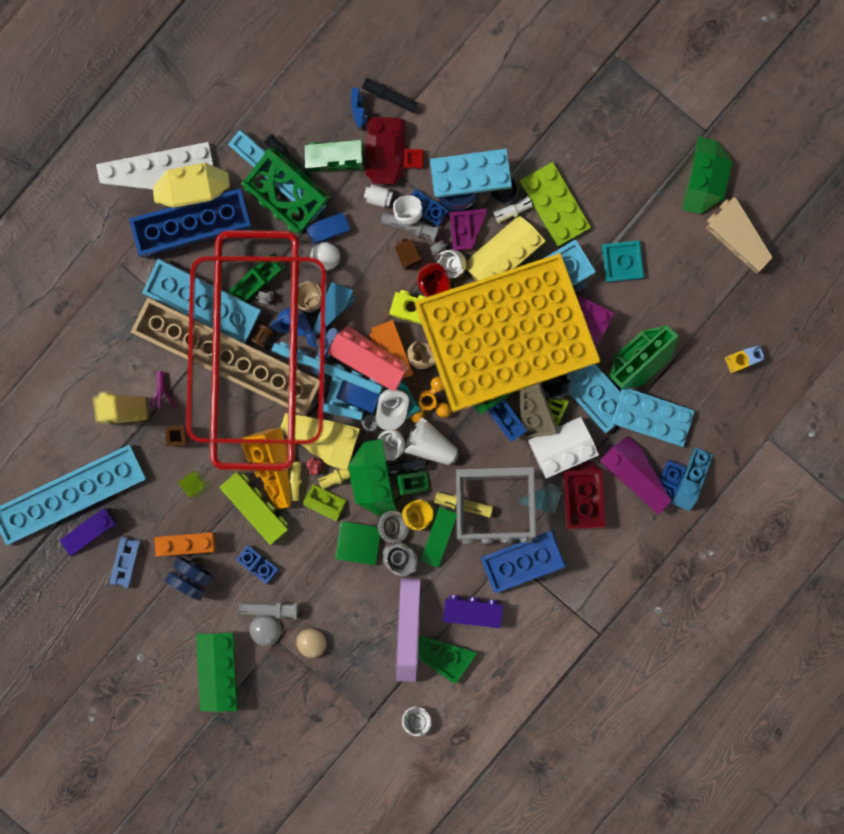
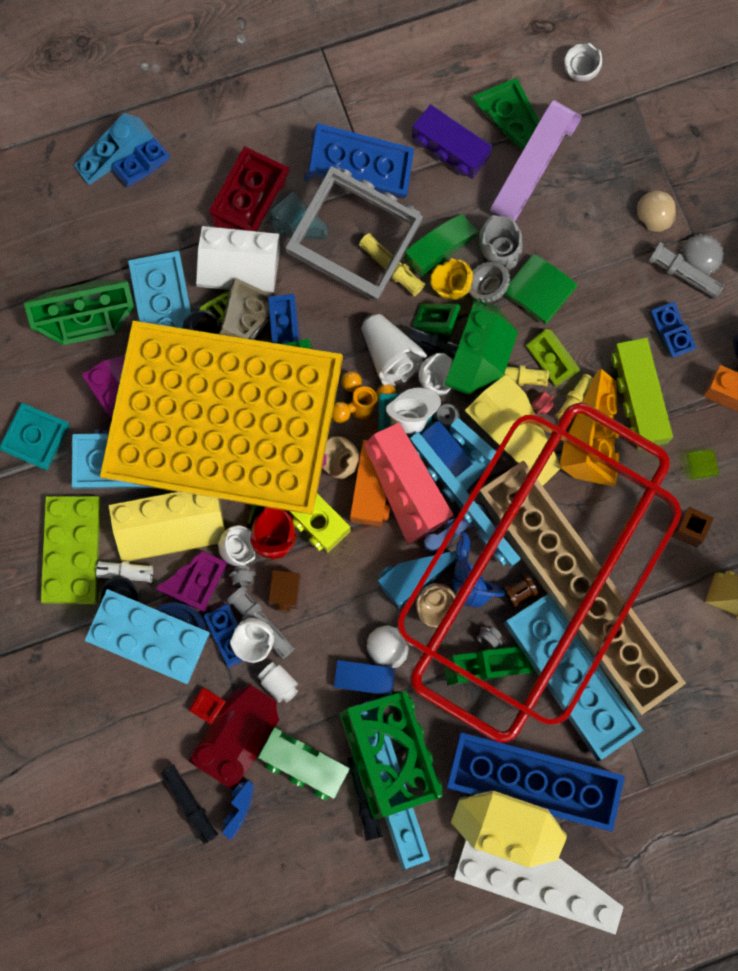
camera: 150 degrees left, 10 degrees down
(158, 394) = (680, 600): magenta plant -> none
(633, 469) = (172, 192): magenta wedge -> none
(652, 417) = (114, 238): medium azure plate -> none

